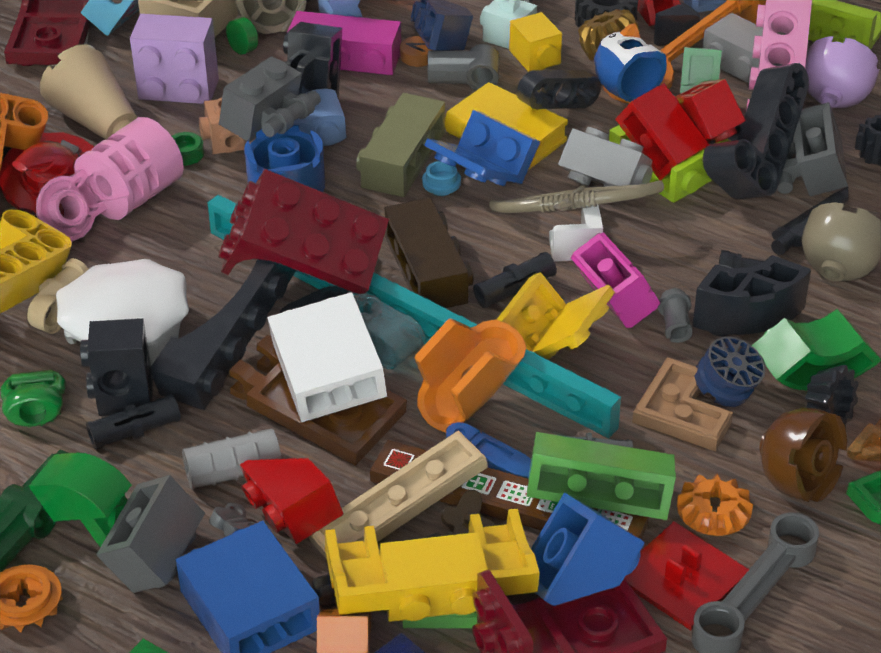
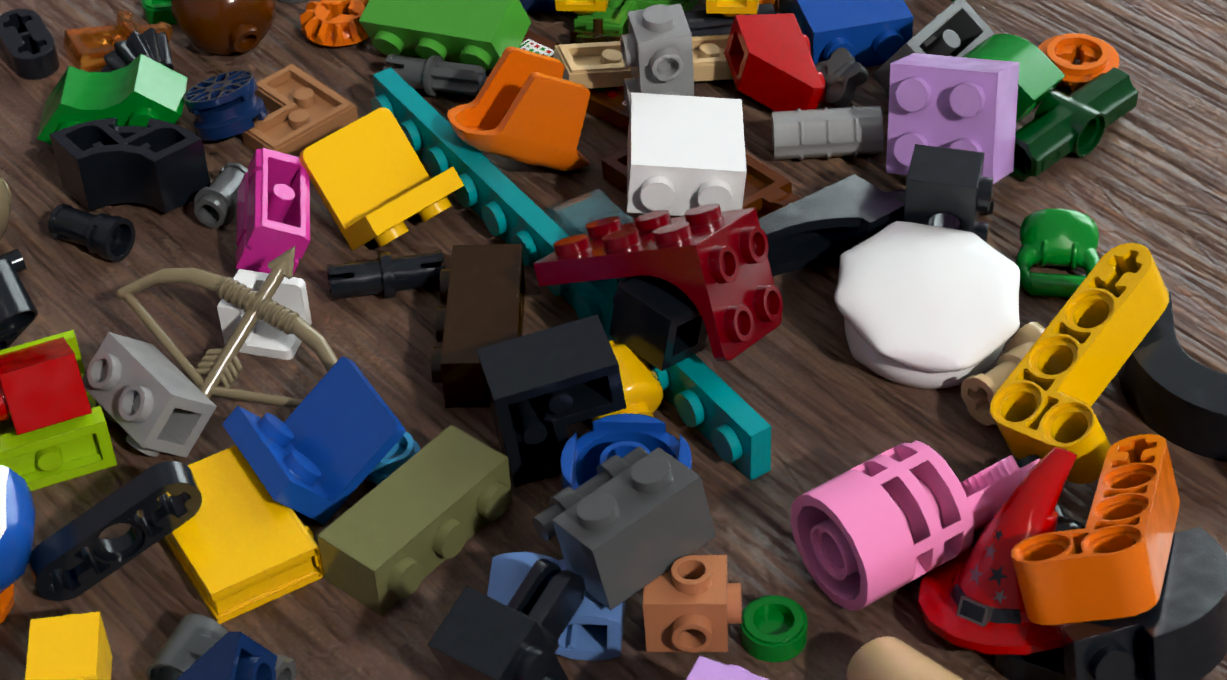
camera: 160 degrees left, 0 degrees up
(122, 426) = (953, 106): none -> lavender brick
(350, 169) = (544, 385): none -> black brick
(376, 421) = (658, 52): none -> light grey brick

